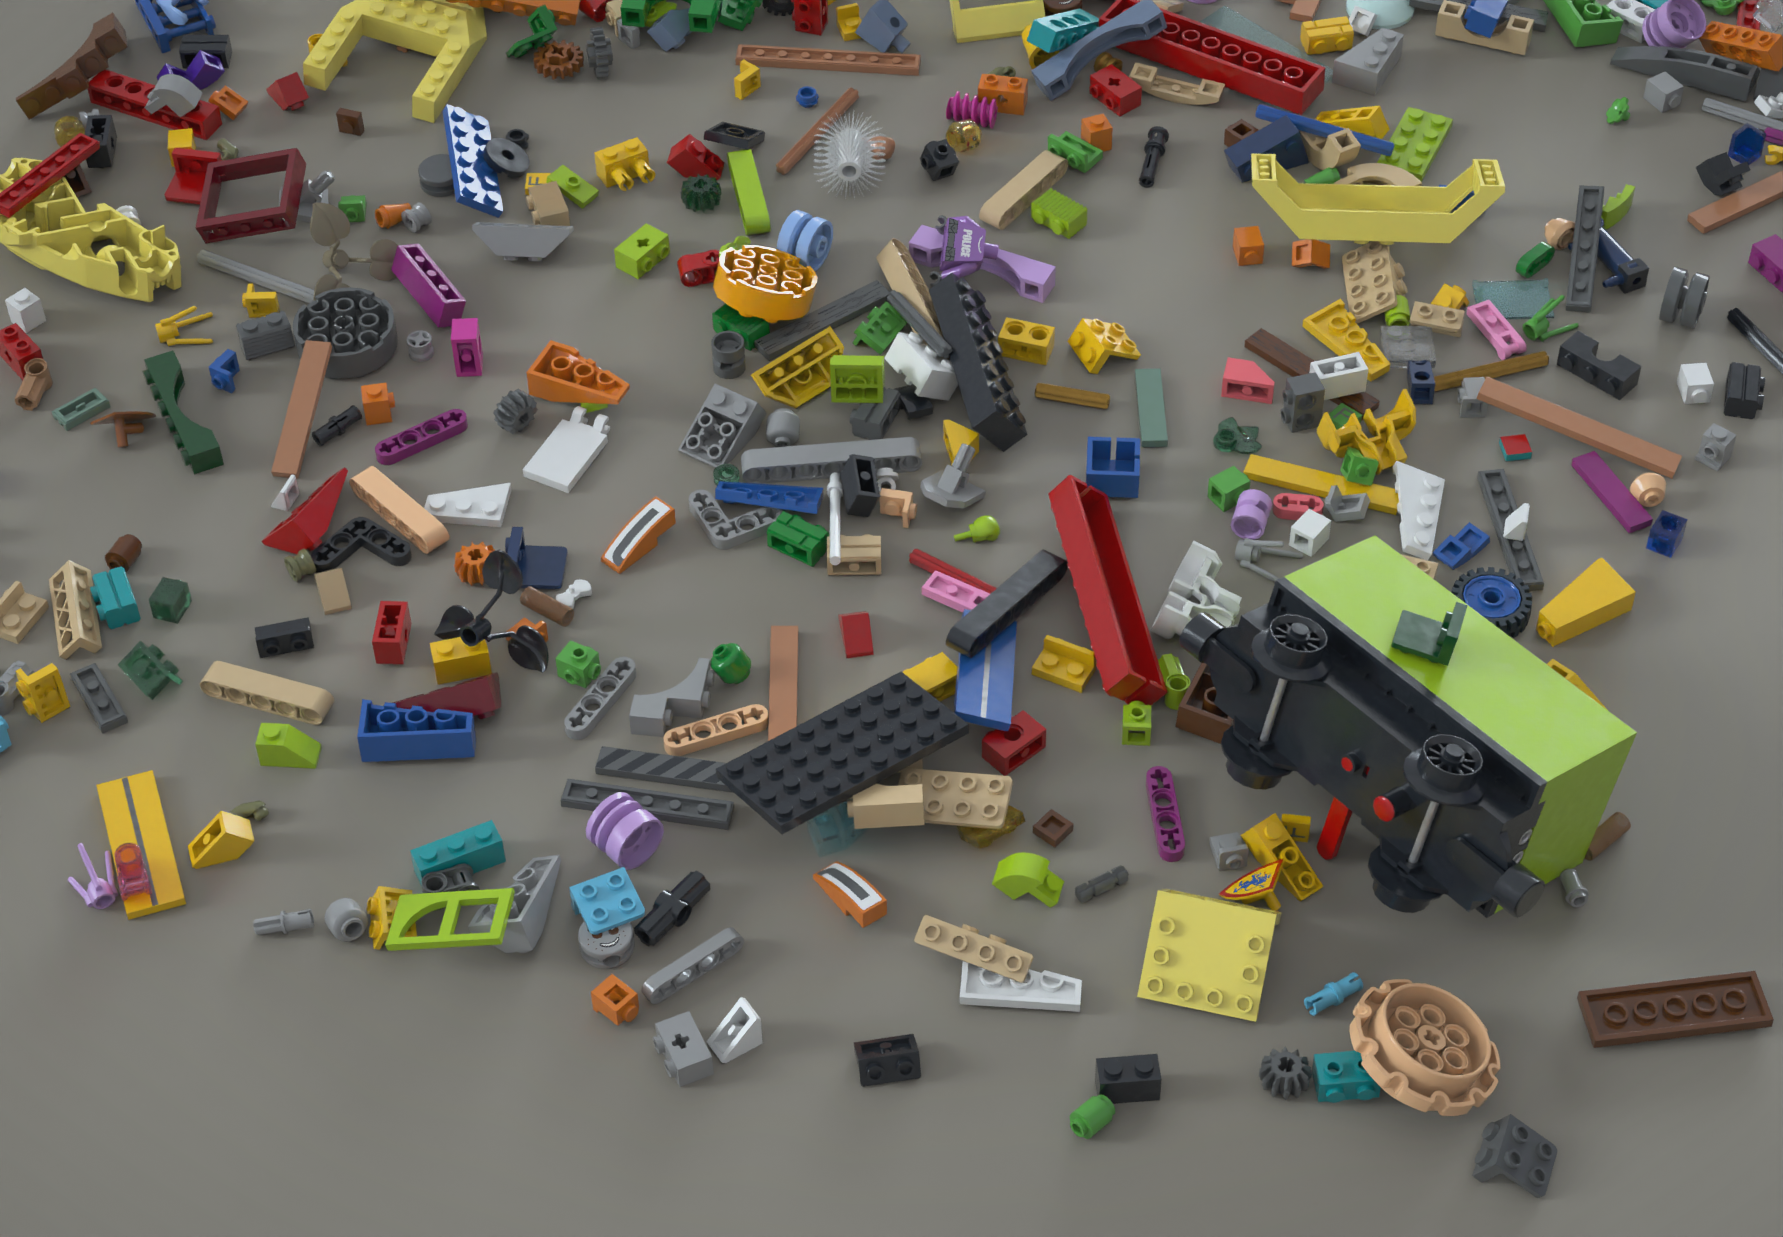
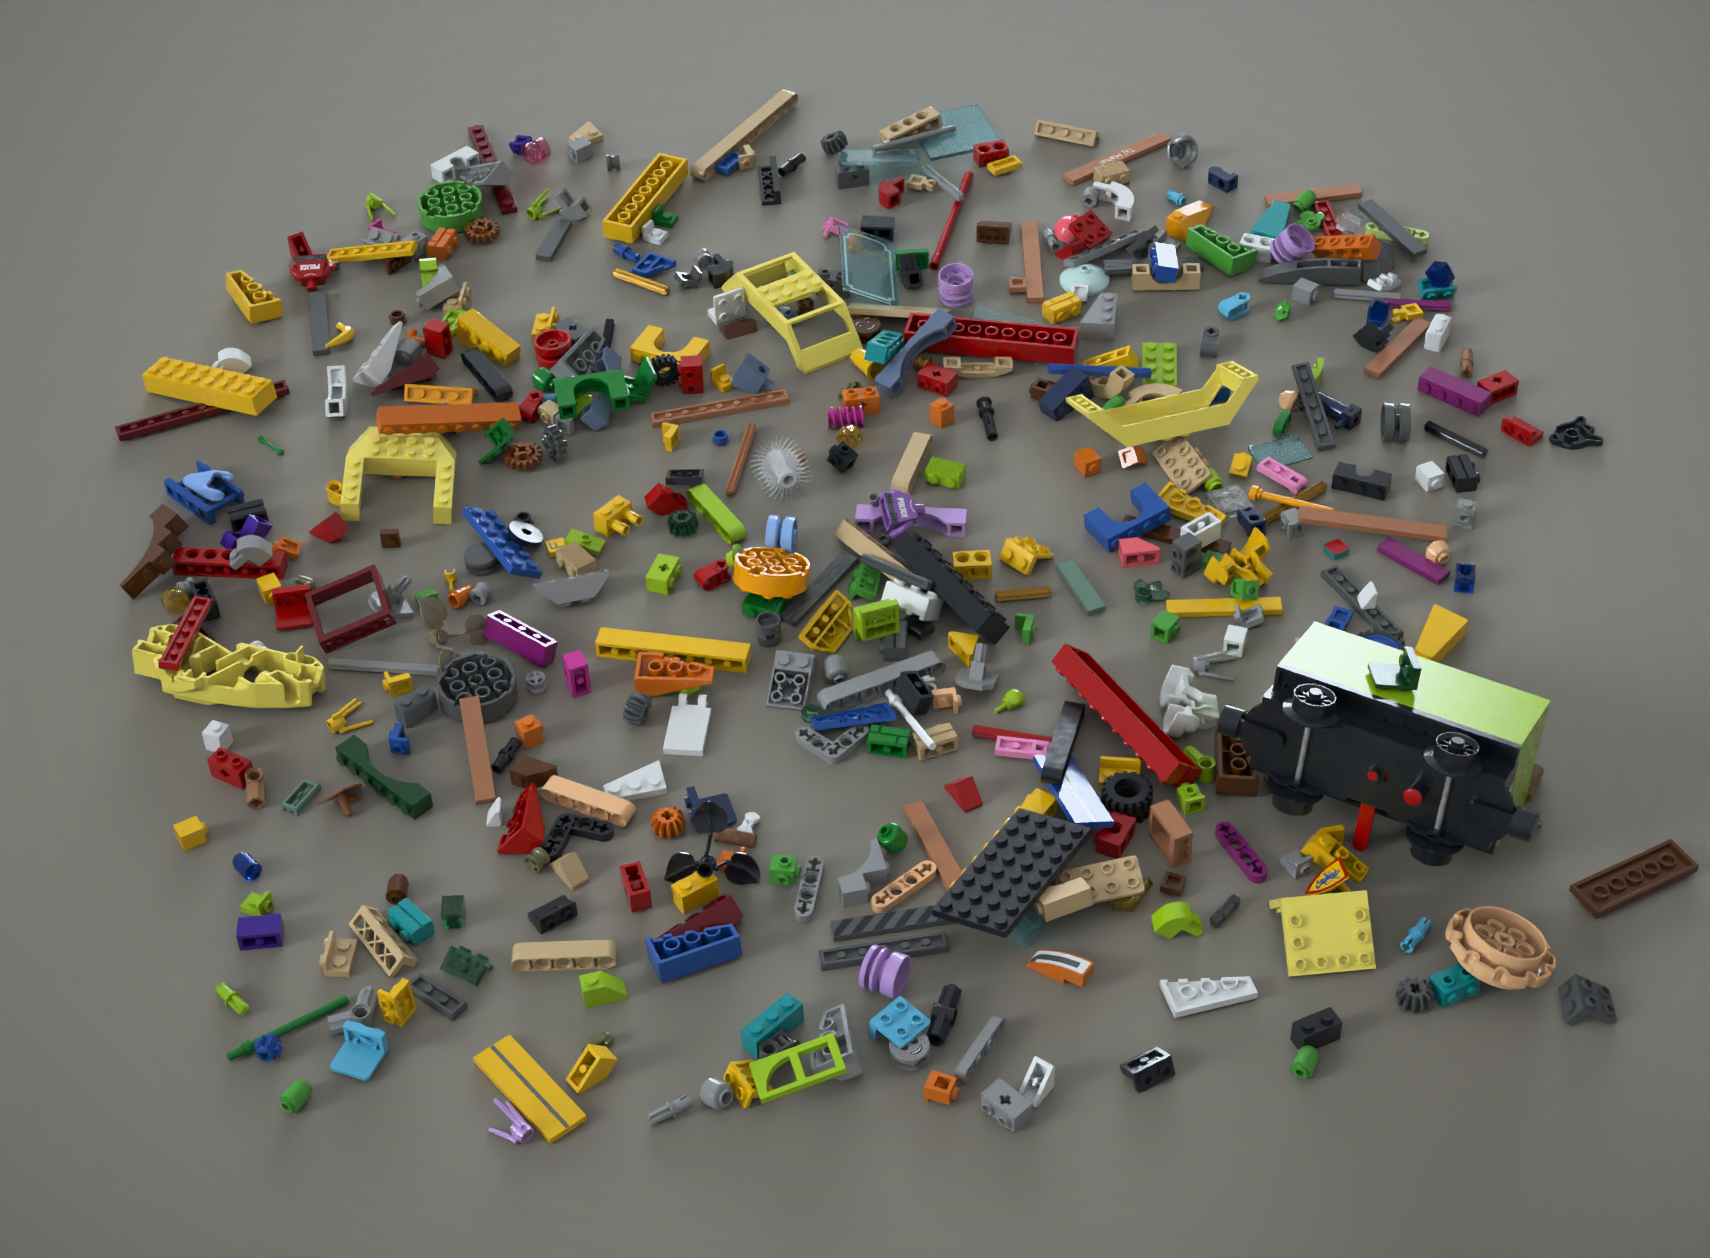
camera: 20 degrees left, 5 degrees down
(132, 871) = (544, 1110): clear pink piece -> none
(352, 453) = (531, 770): none -> reddish brown slope
(394, 189) = (450, 578): none -> yellow hand
(453, 420) = (576, 748): magenta beam -> none
(610, 351) = (715, 653): none -> yellow brick
(639, 535) = (774, 770): slope -> none
(973, 948) = (1169, 977): tan bracket -> none
(1051, 440) = (1026, 624): none -> bright green bracket
(1054, 682) = (1128, 795): none -> black tyre
(1077, 151) = (937, 428): bright green bracket -> none
(1079, 761) = (1170, 833): none -> nougat window
(1115, 476) = (1089, 632): blue piece -> none
(1251, 514) = (1190, 639): lavender wheel -> none
(1289, 338) = (1108, 532): none -> blue arch
(1296, 505) = (1214, 626): coral beam -> none
(1419, 508) = (1294, 601): white wing -> none
(1439, 318) = (1243, 476): tan bracket -> none
(1447, 345) = (1257, 493): none -> light orange piece
(1496, 128) = (1210, 342): none -> dark grey piece
(1539, 324) = (1307, 466): bright green plant -> none
(1557, 90) = (1235, 306): none -> medium azure piece

